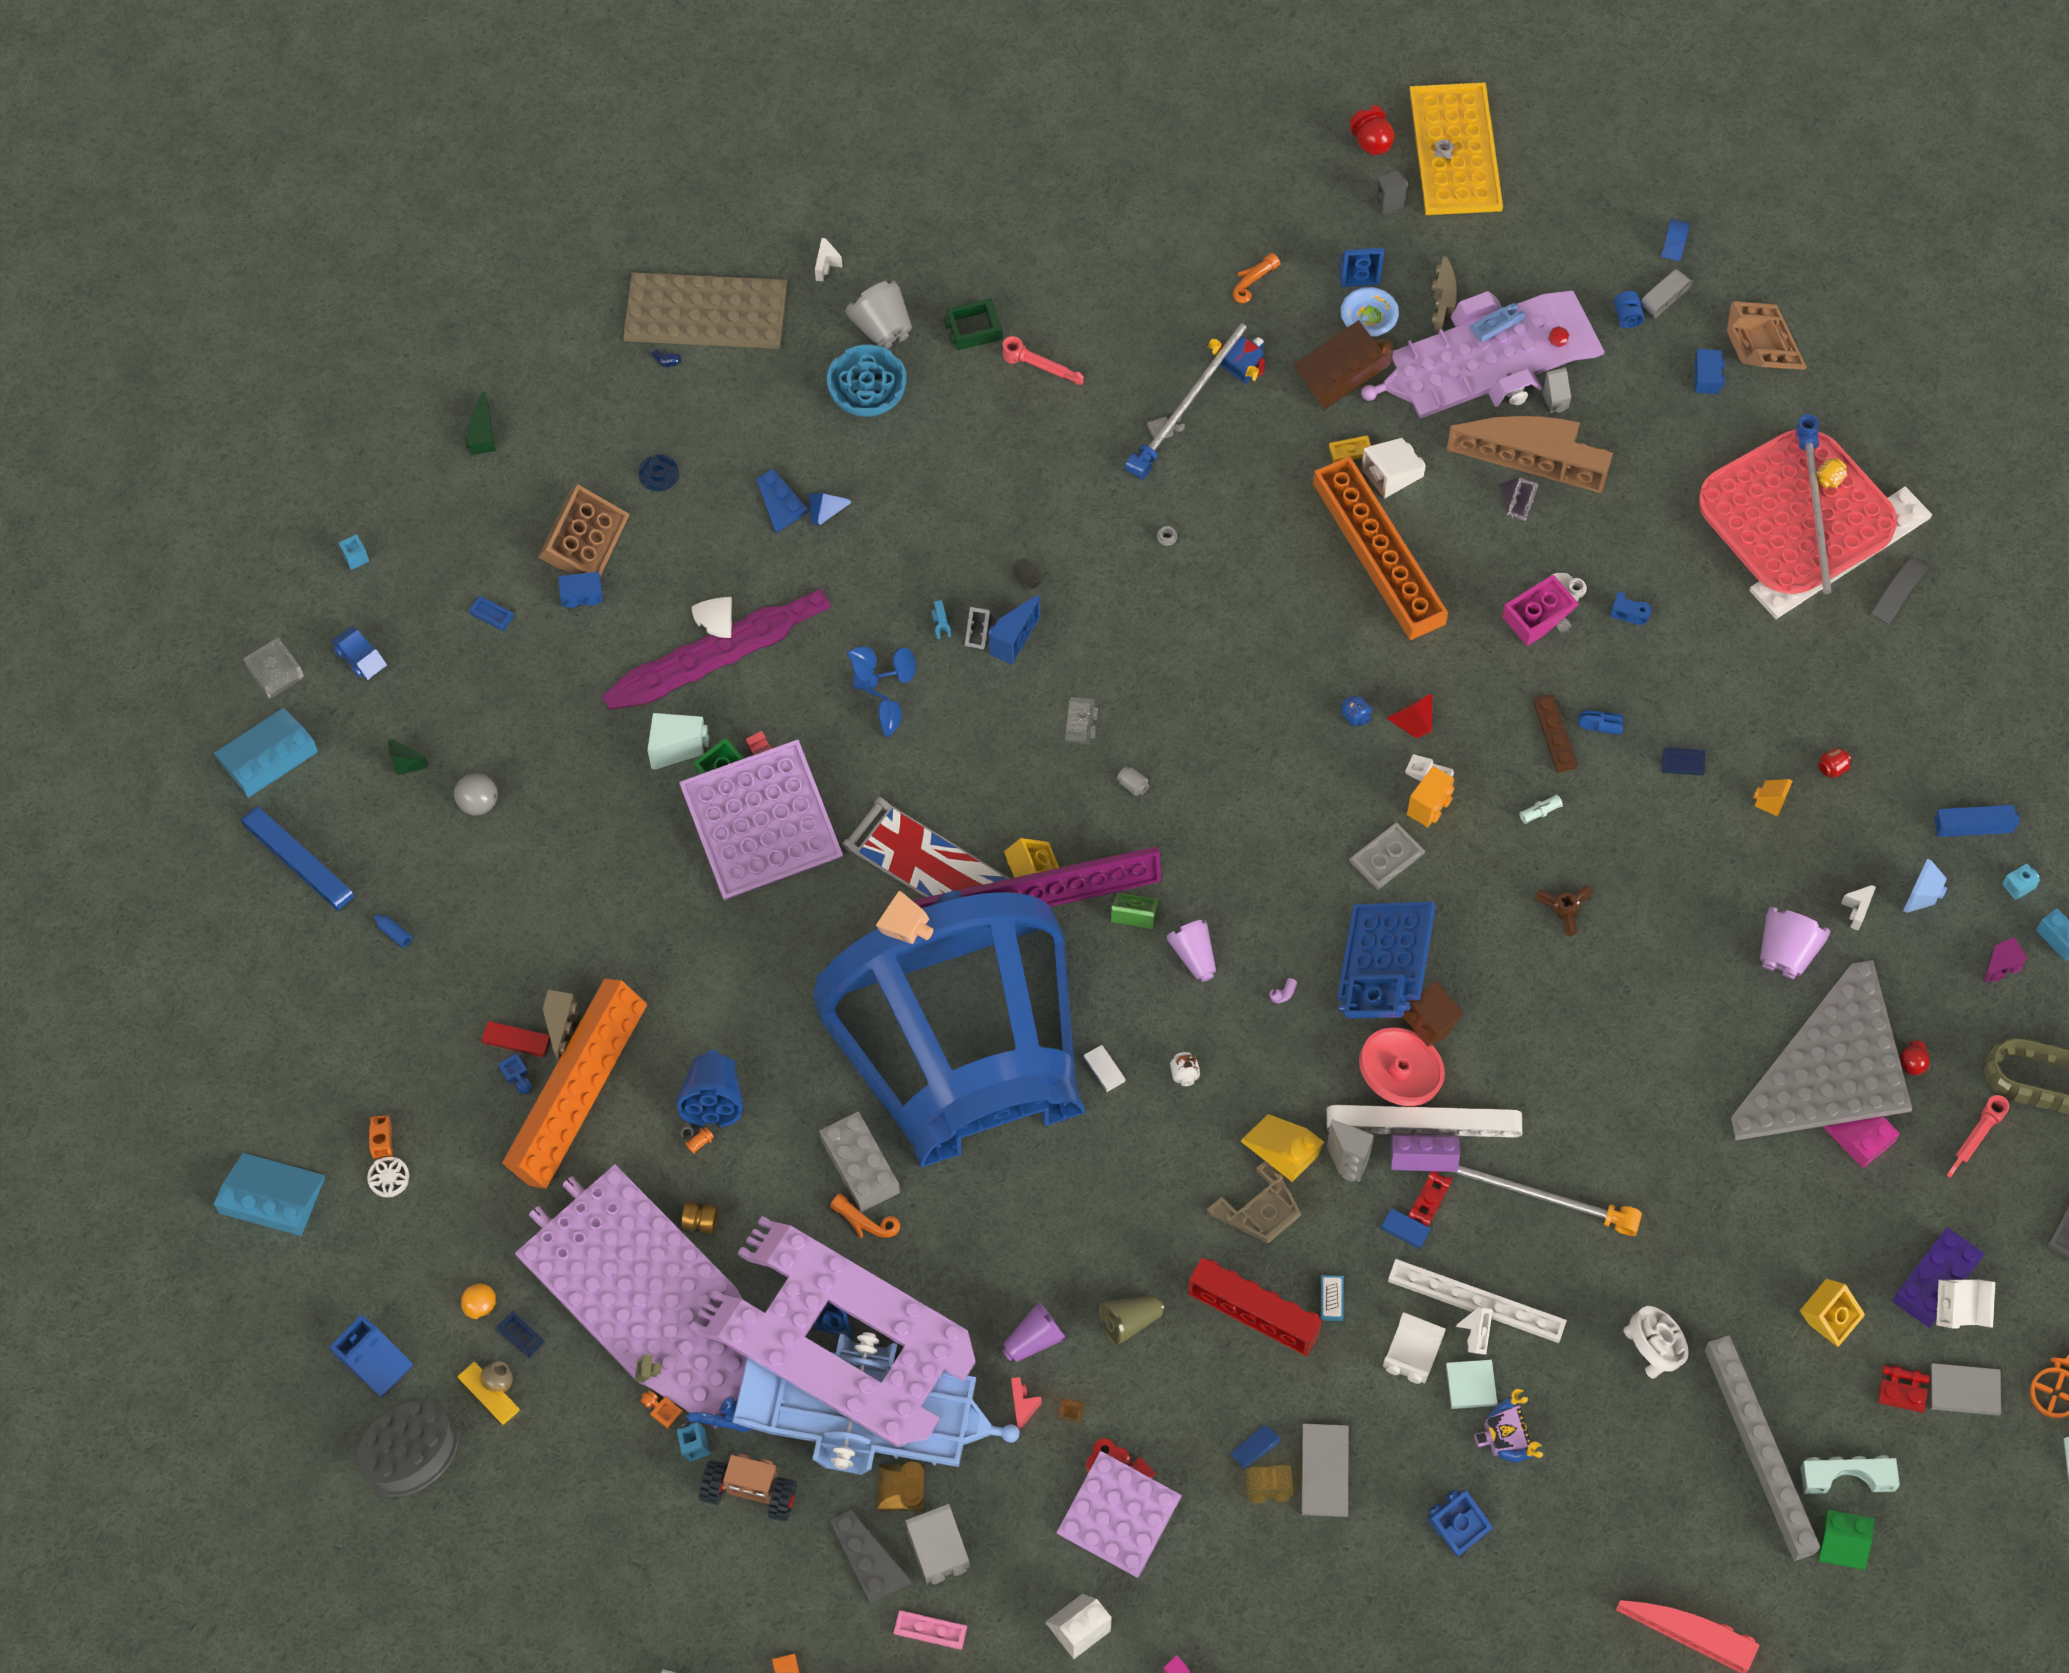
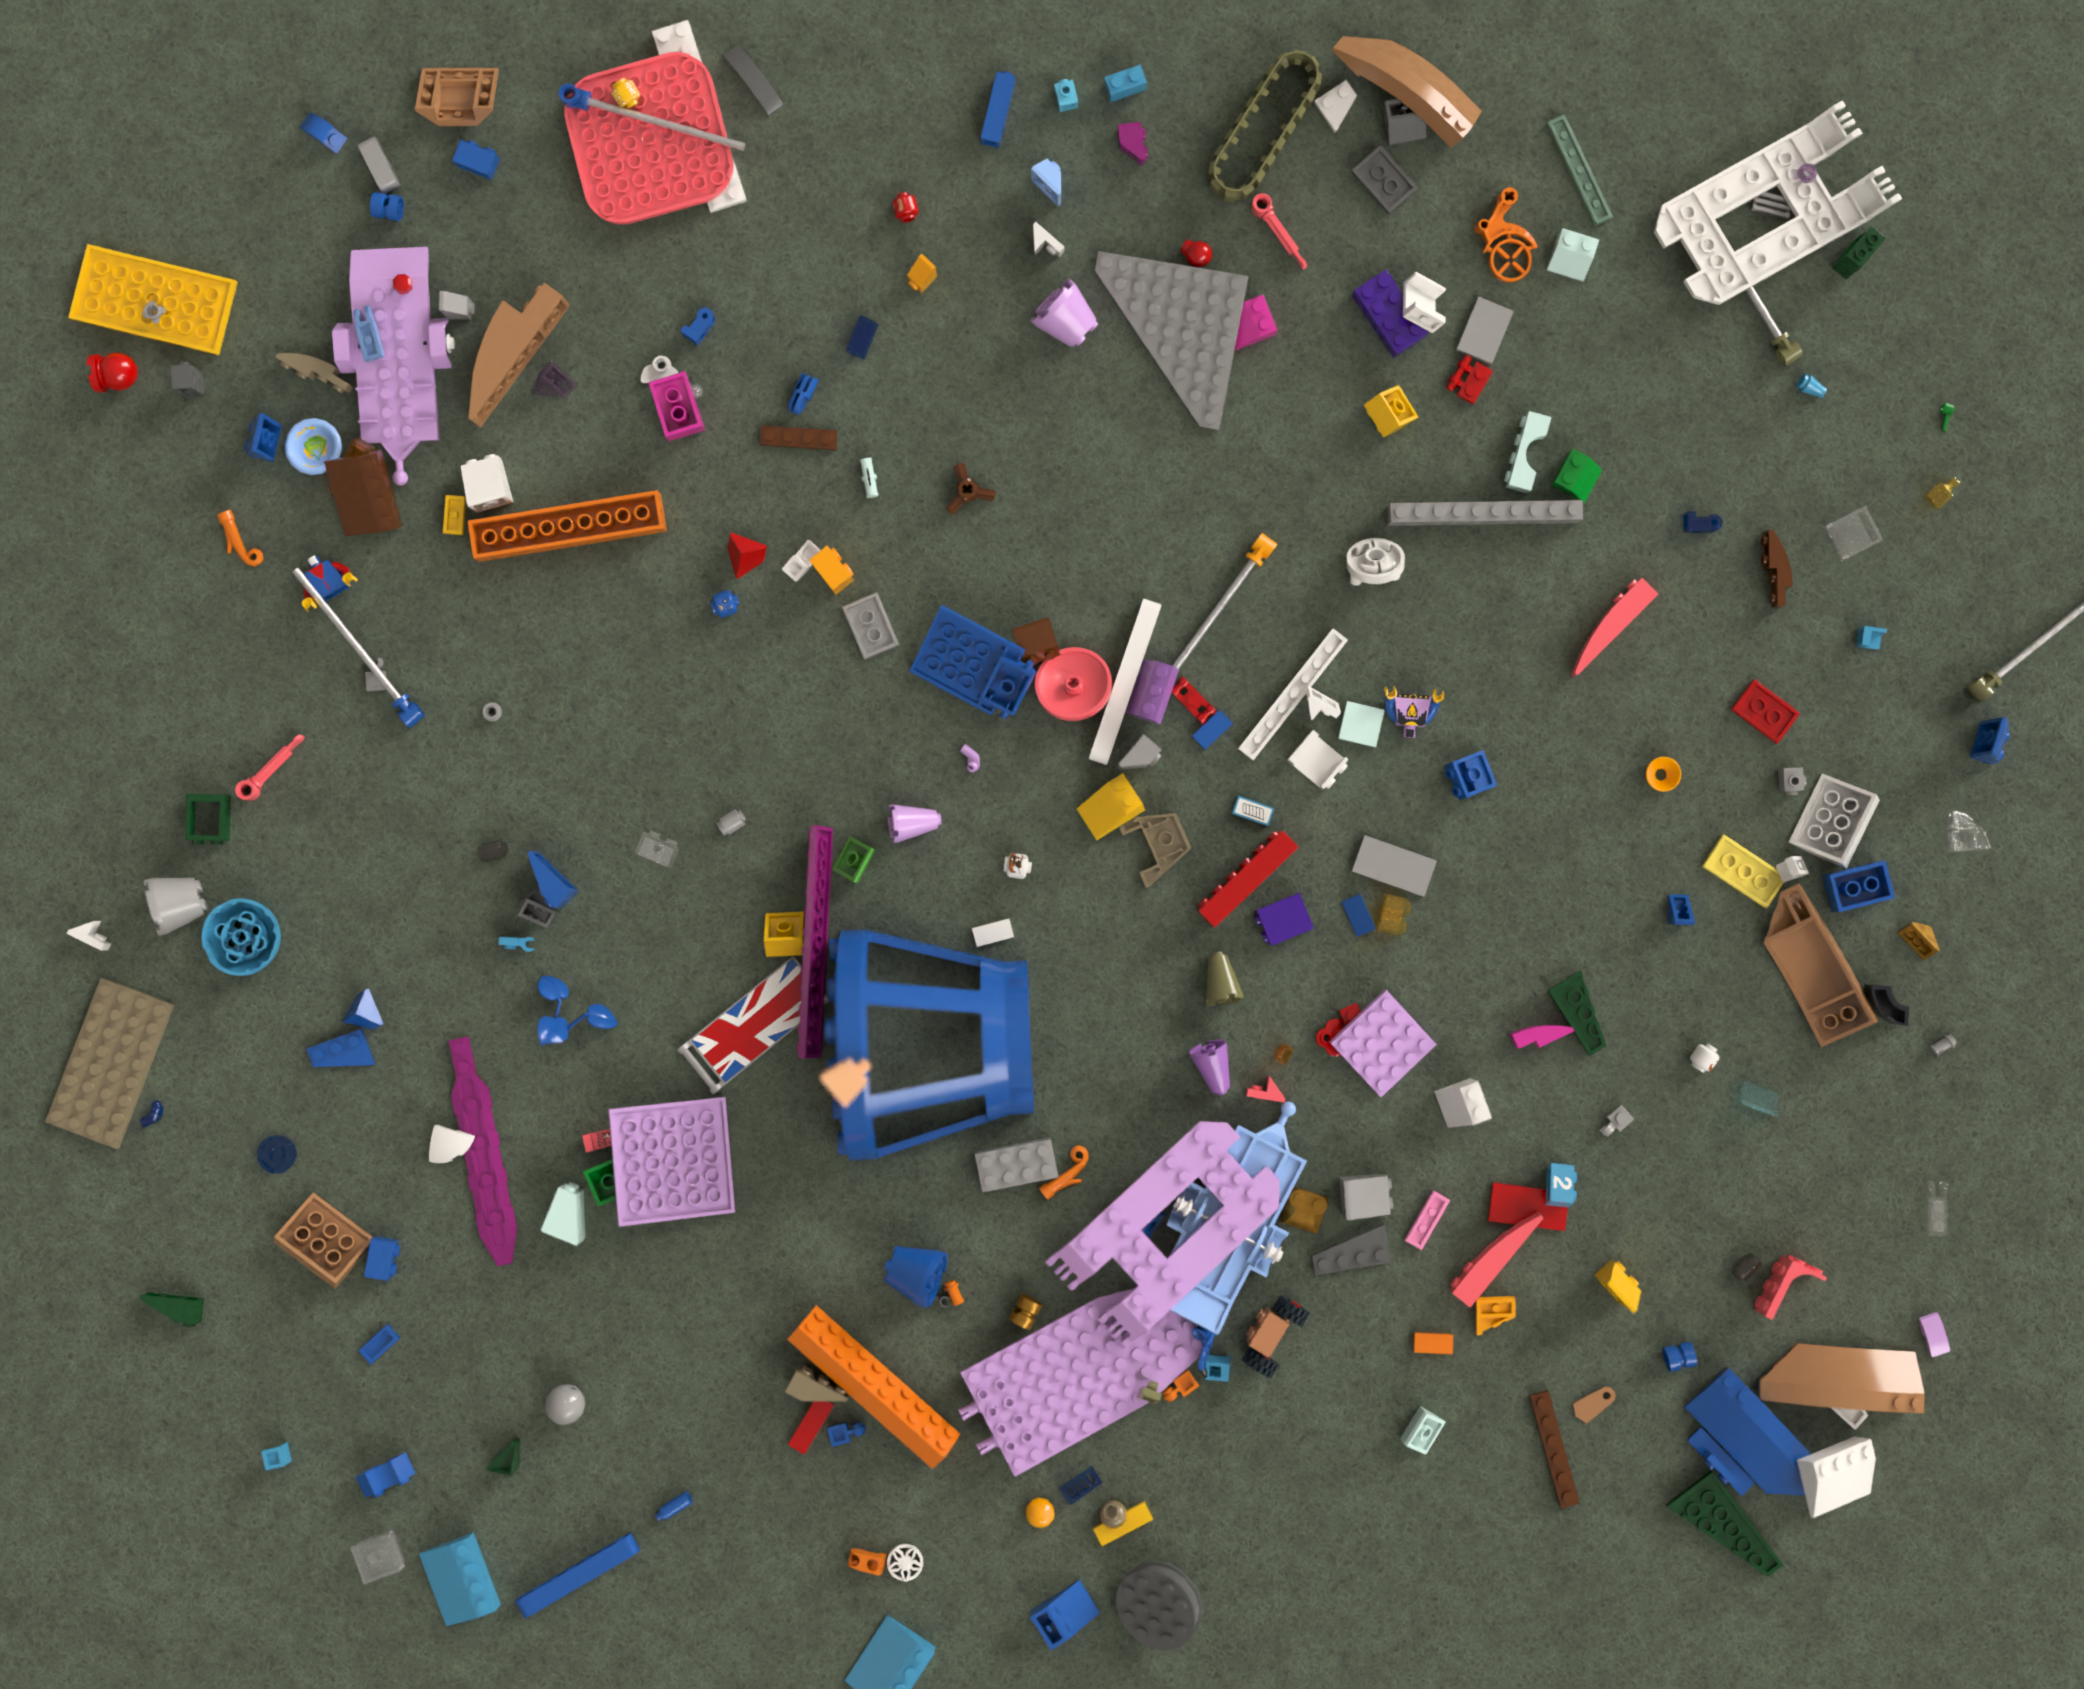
camera: 75 degrees left, 25 degrees up
(1222, 1364) = (1283, 919): none -> dark purple brick

